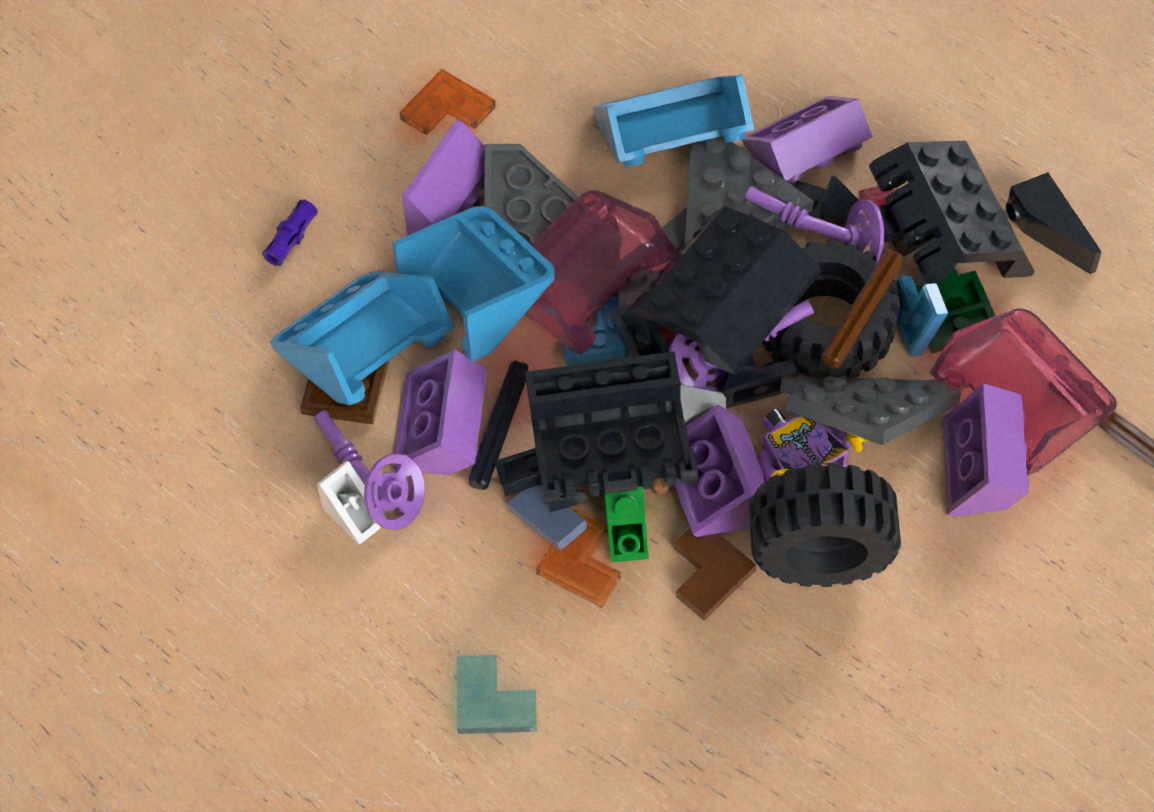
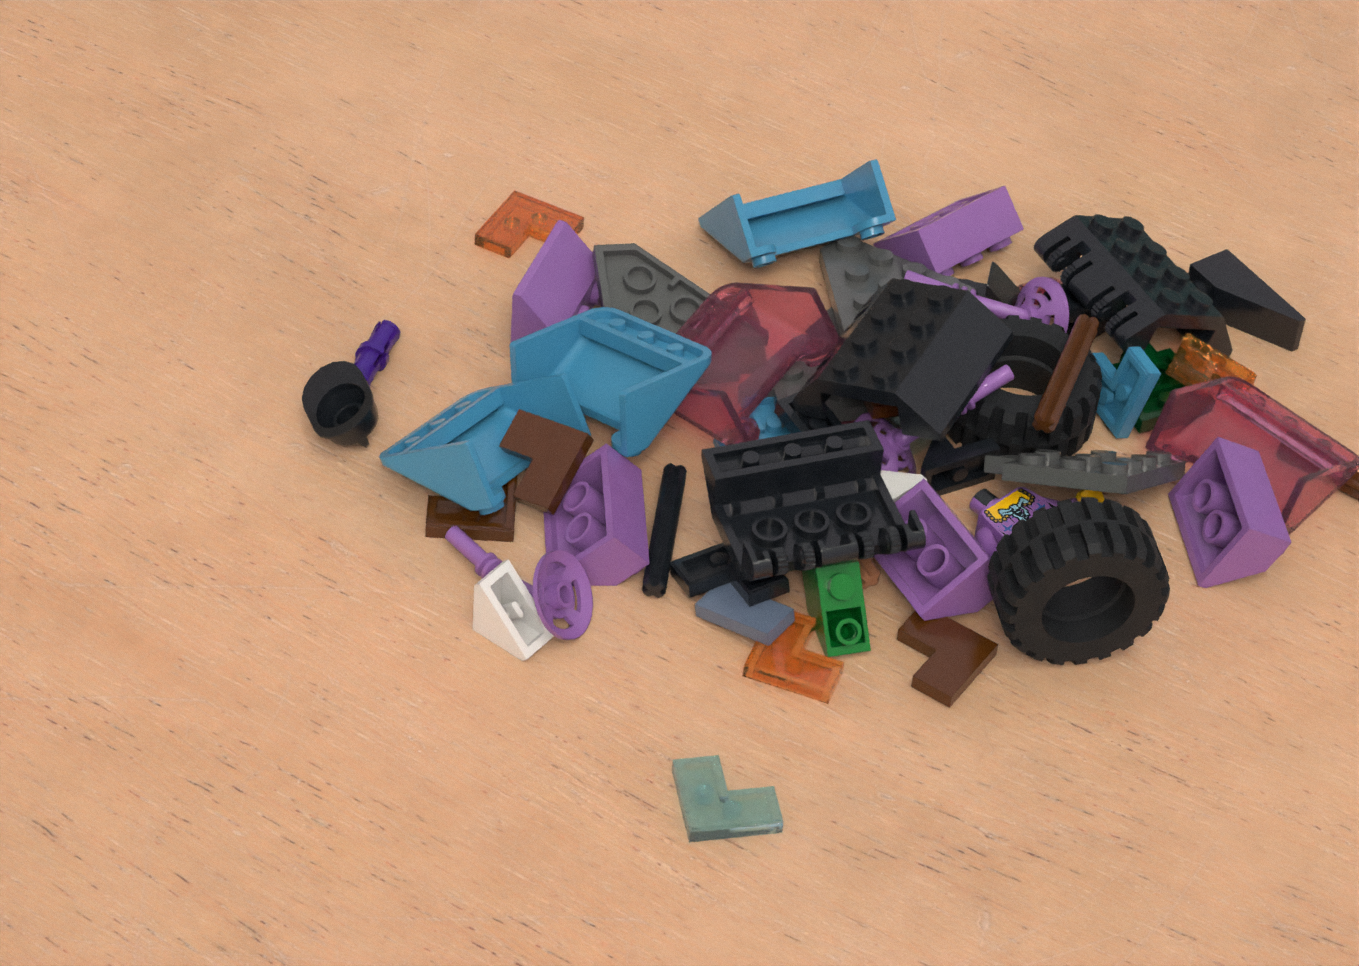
camera: 15 degrees left, 15 degrees down
(249, 285) = (340, 404): none -> black piece
(415, 353) = (554, 457): none -> reddish brown tile
(1000, 288) = (1199, 363): none -> clear orange tile

